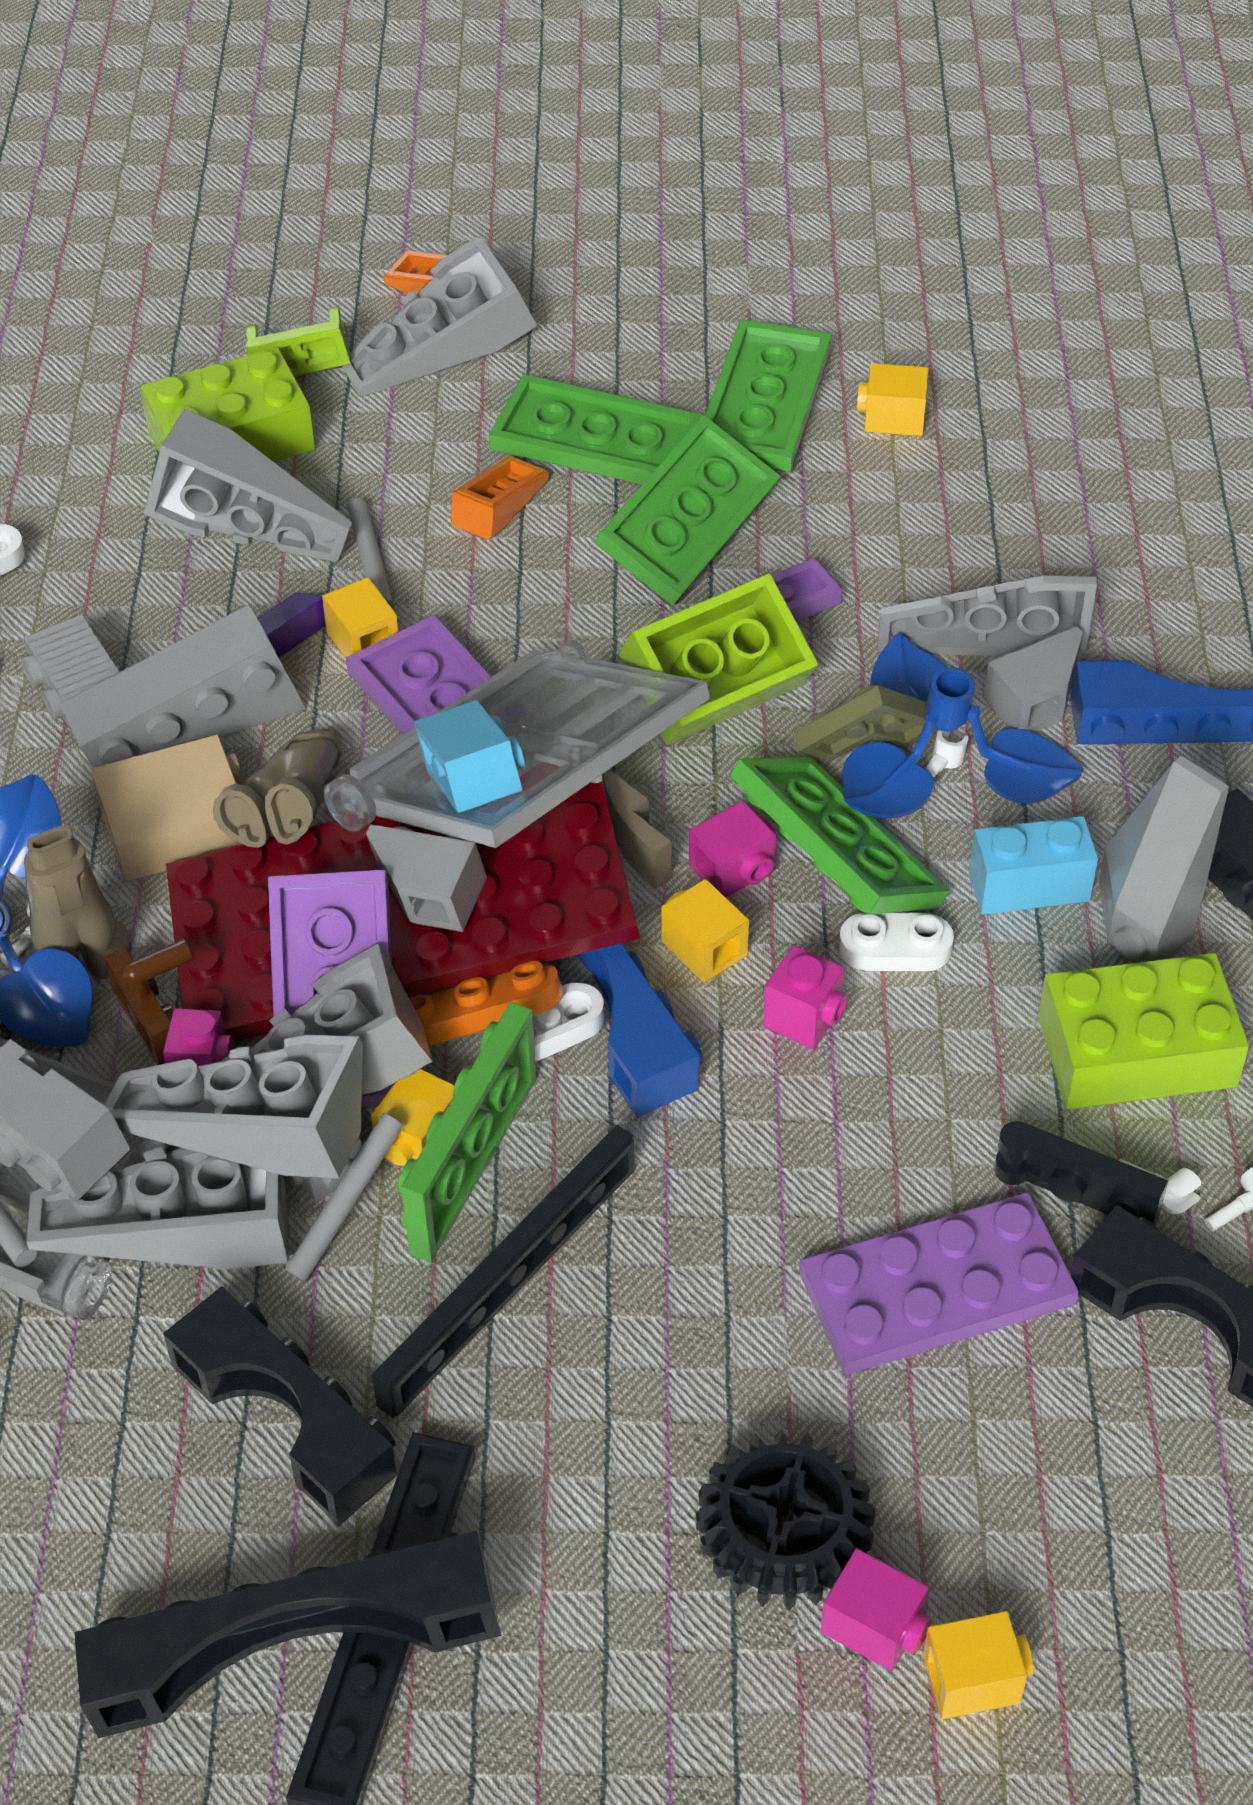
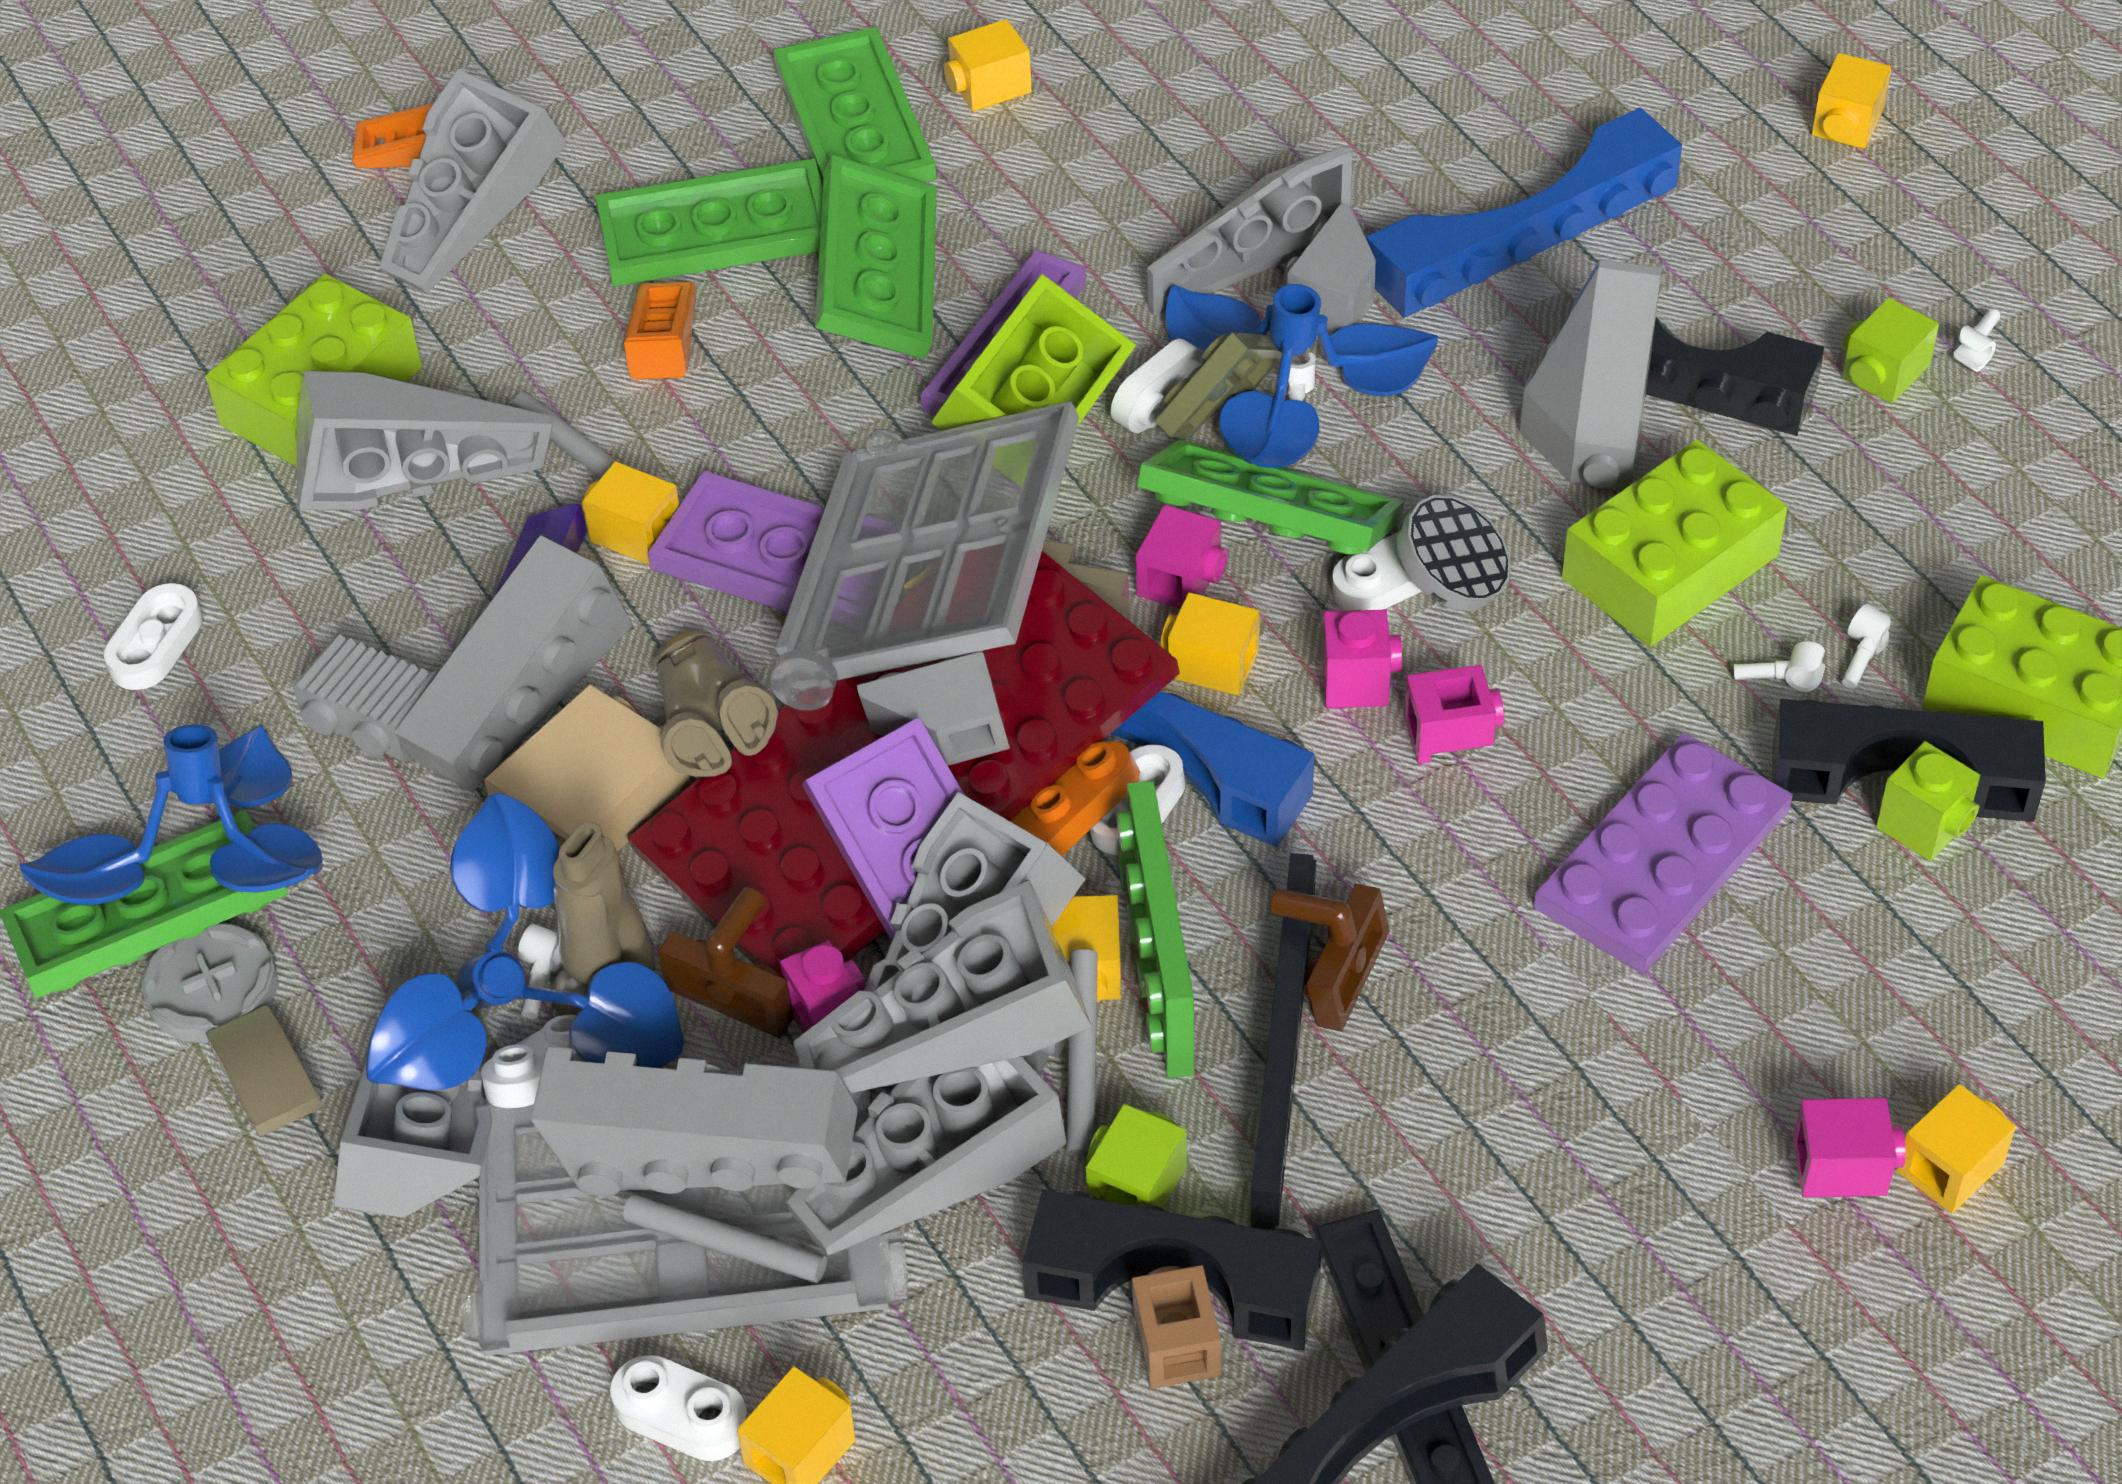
camera: 30 degrees left, 0 degrees up
(225, 1456) = (1176, 1326): none -> medium nougat brick
(307, 347) = (349, 258): lime hinge -> none
(320, 1306) = (1136, 1158): none -> lime brick
(470, 755) = (914, 571): medium azure brick -> none
(609, 1229) = (1353, 944): none -> reddish brown plate
(740, 1498) = (1691, 1135): black gear -> none
(799, 705) = (1143, 392): none -> white plate
(847, 1077) = (1451, 711): none -> dark pink brick
(949, 950) = (1454, 552): none -> tile
(1032, 865) = (1465, 440): medium azure brick -> none
(1076, 1172) = (1714, 693): black plate -> none
(1185, 1358) = (1928, 801): none -> lime brick

